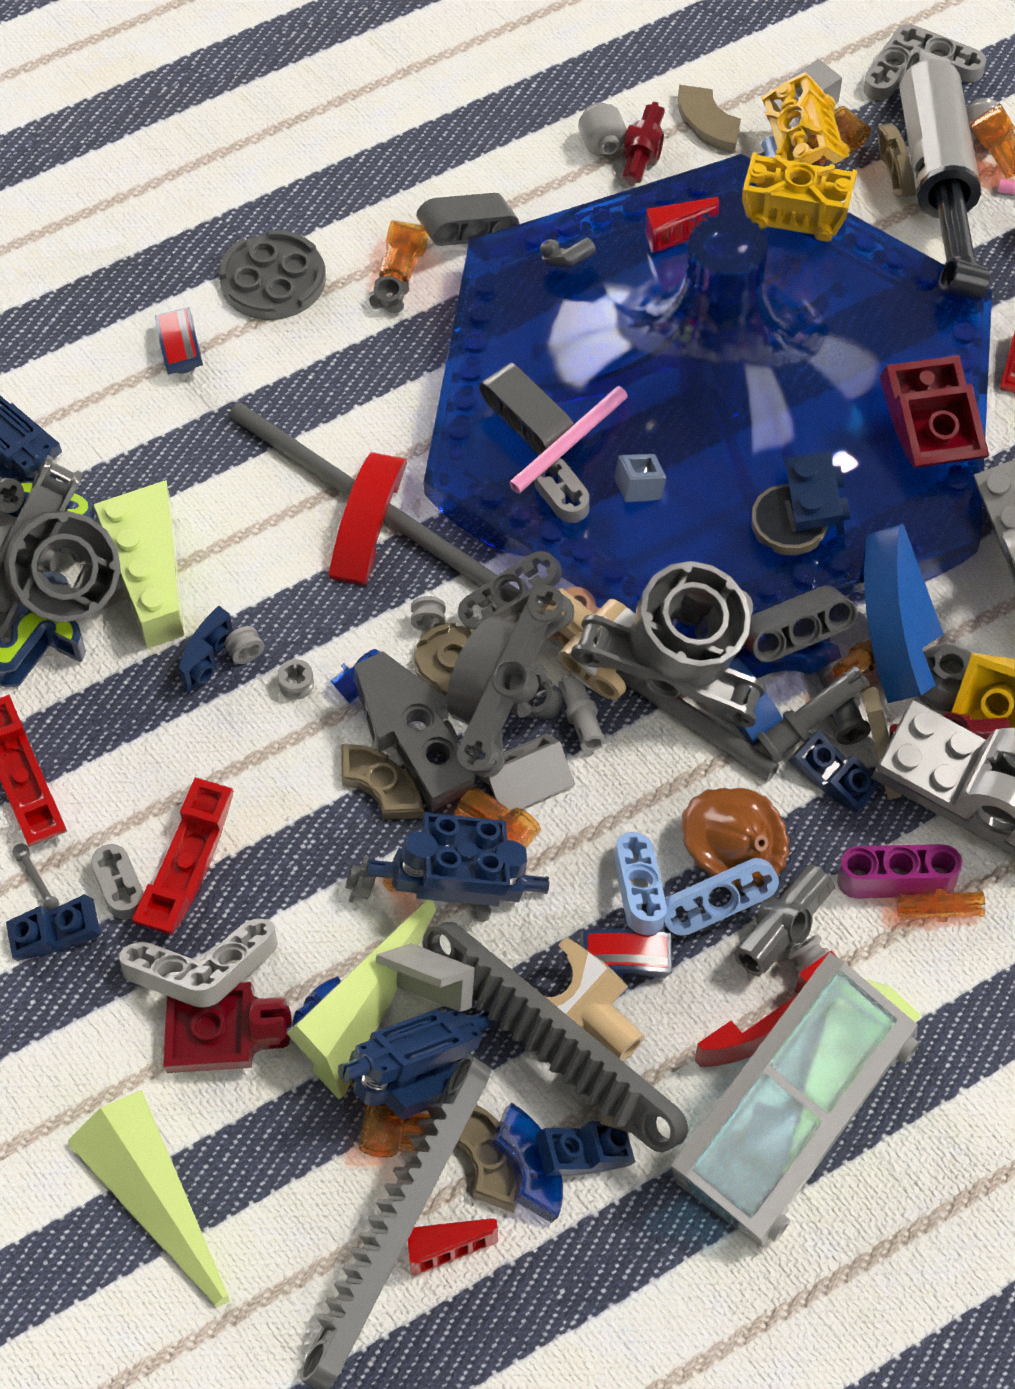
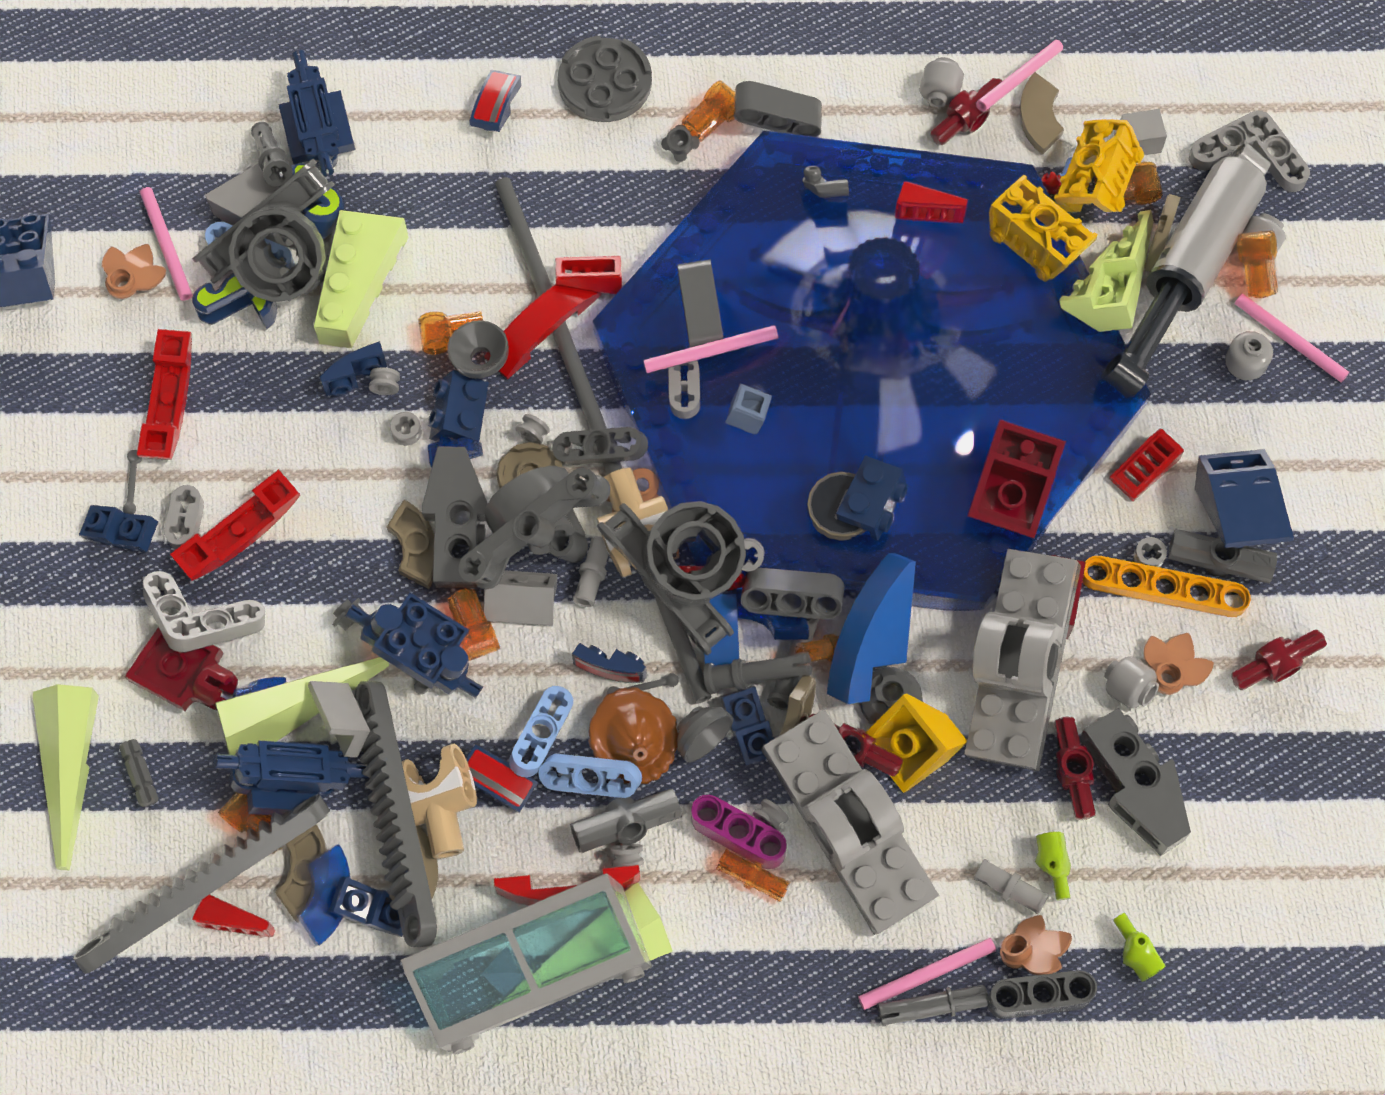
camera: 30 degrees right, 10 degrees up
(242, 1157) = (138, 773): none -> dark grey axle
(273, 571) = (437, 329): none -> clear orange piece
(324, 551) = (478, 337): none -> dark grey piece
(336, 630) = (458, 407): none -> dark blue bracket
(388, 443) = (597, 273): none -> red slope
(670, 92) = (1019, 75): none -> bright pink piece
(677, 783) = (619, 667): none -> dark blue slope
(727, 773) = (670, 680): none -> dark grey hinge
(799, 794) = (702, 731): none -> dark grey piece
(890, 219) = (1112, 289): none -> yellowish green wedge
(918, 834) = (771, 814): none -> light grey bush

